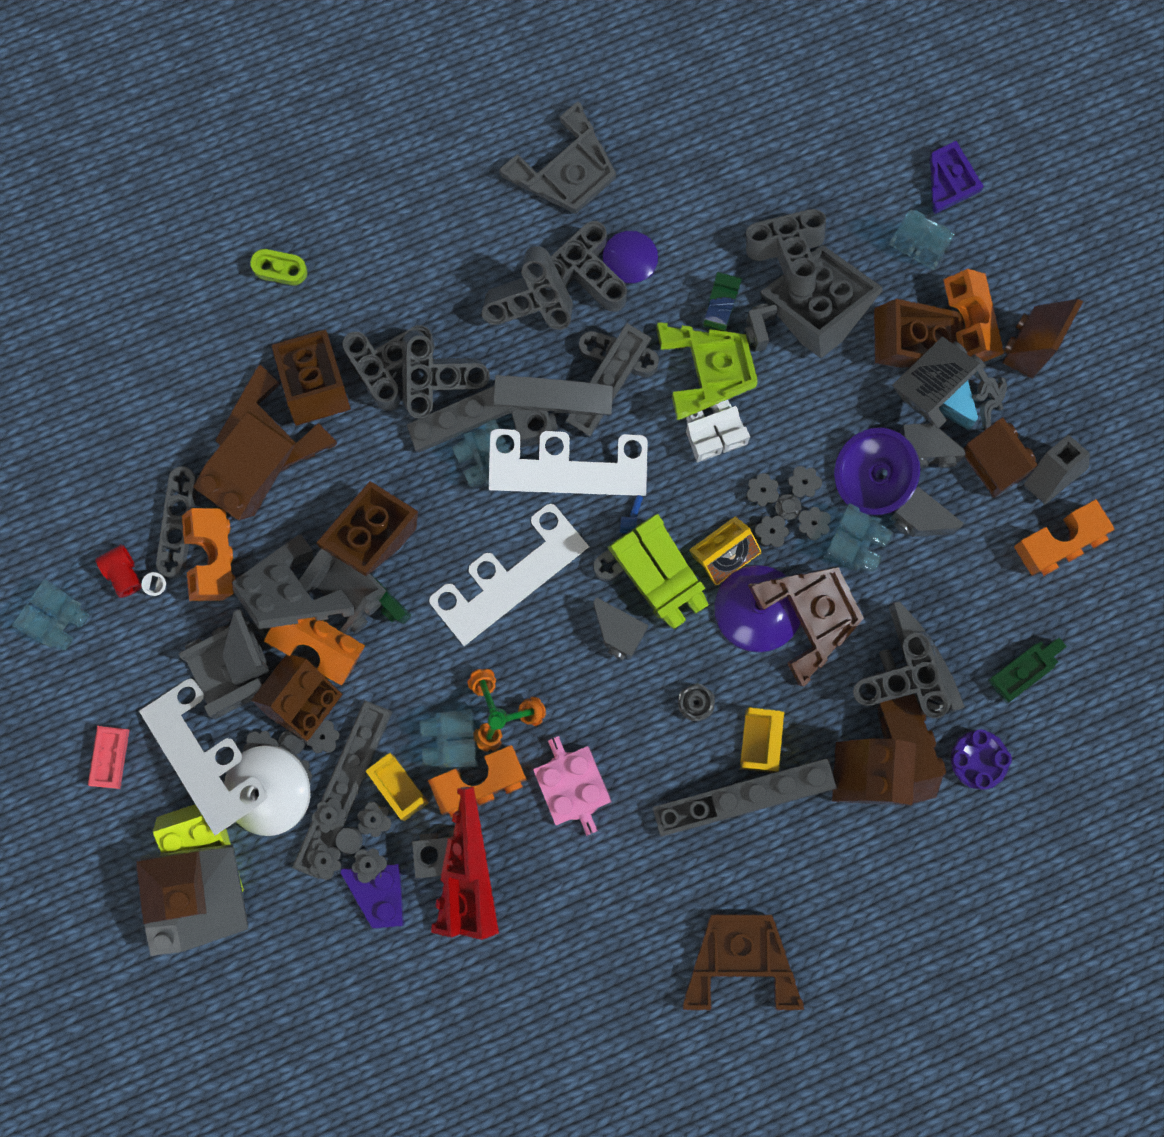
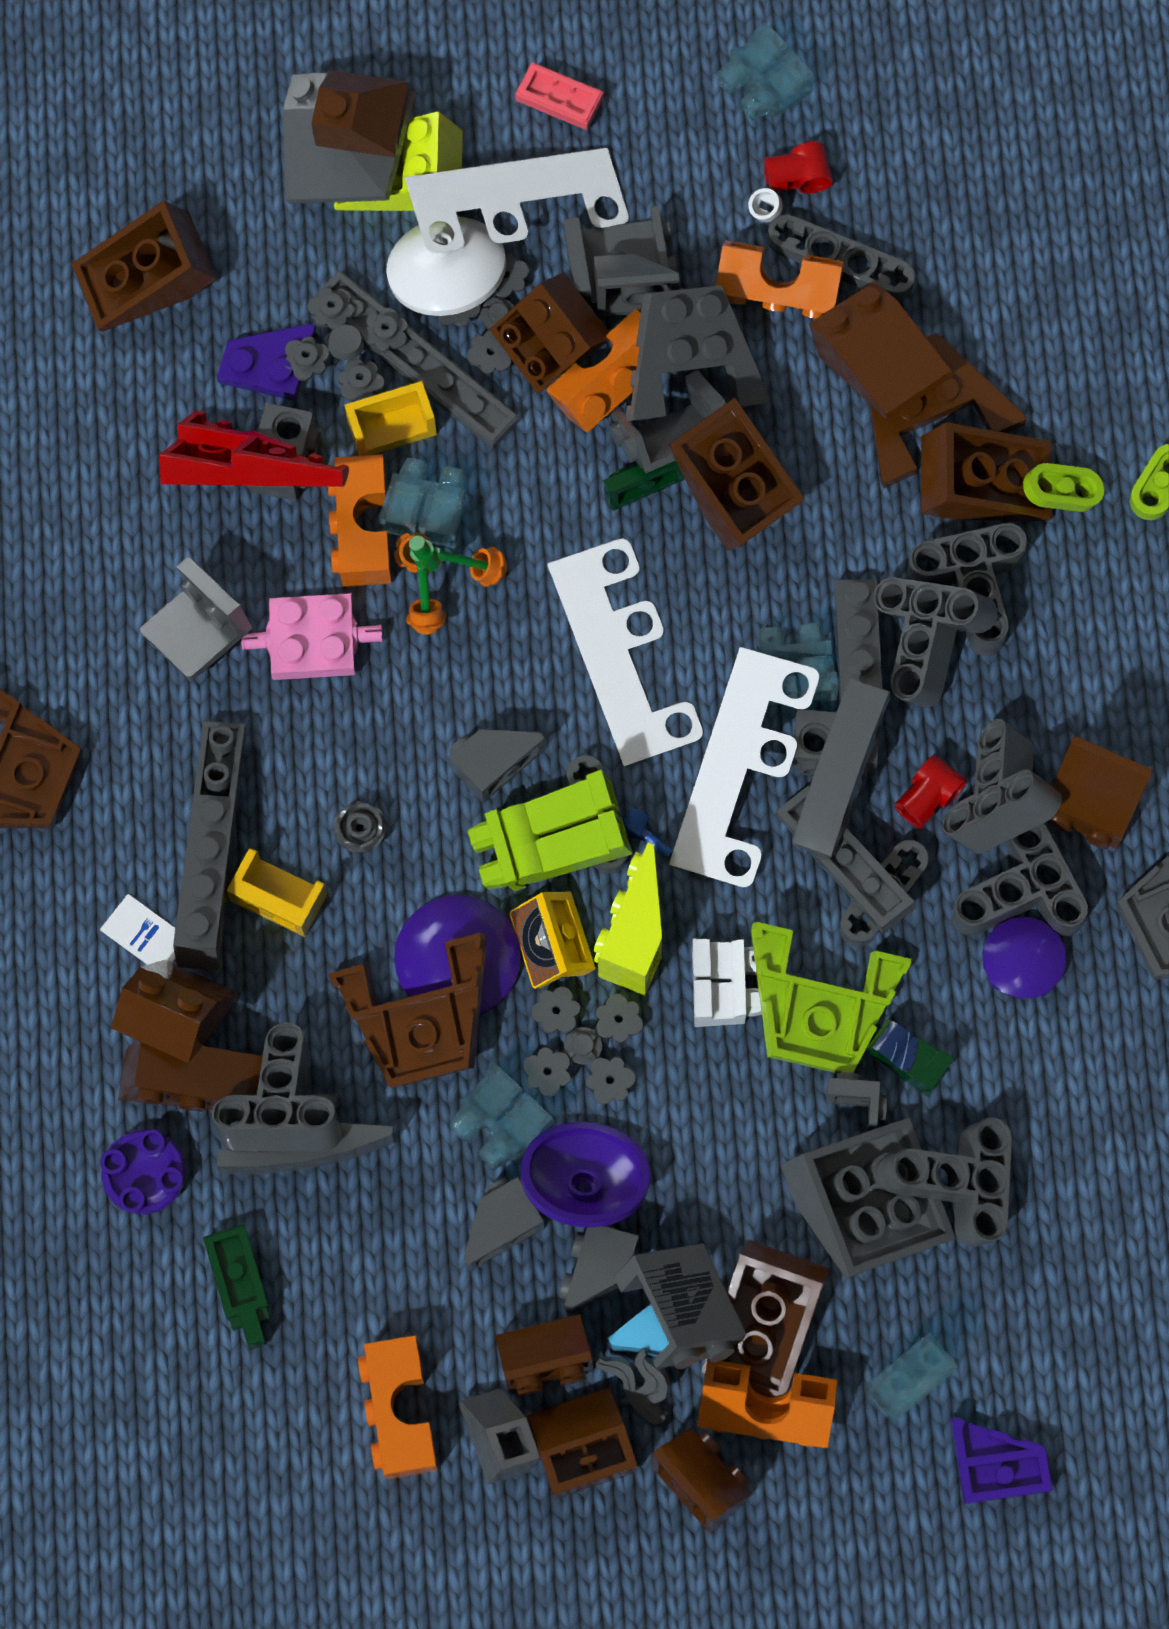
camera: 110 degrees right, 5 degrees down
(304, 324) = (1060, 487): none -> lime plate
(335, 1012) = (144, 267): none -> reddish brown slope
(513, 233) = (1098, 793): none -> reddish brown slope
(538, 344) = (934, 787): none -> red piece
(595, 868) = (196, 623): none -> bracket
(710, 491) = (633, 945): none -> neon yellow slope
(818, 823) = (141, 931): none -> white sticker
(1044, 416) = (582, 1443): none -> reddish brown slope

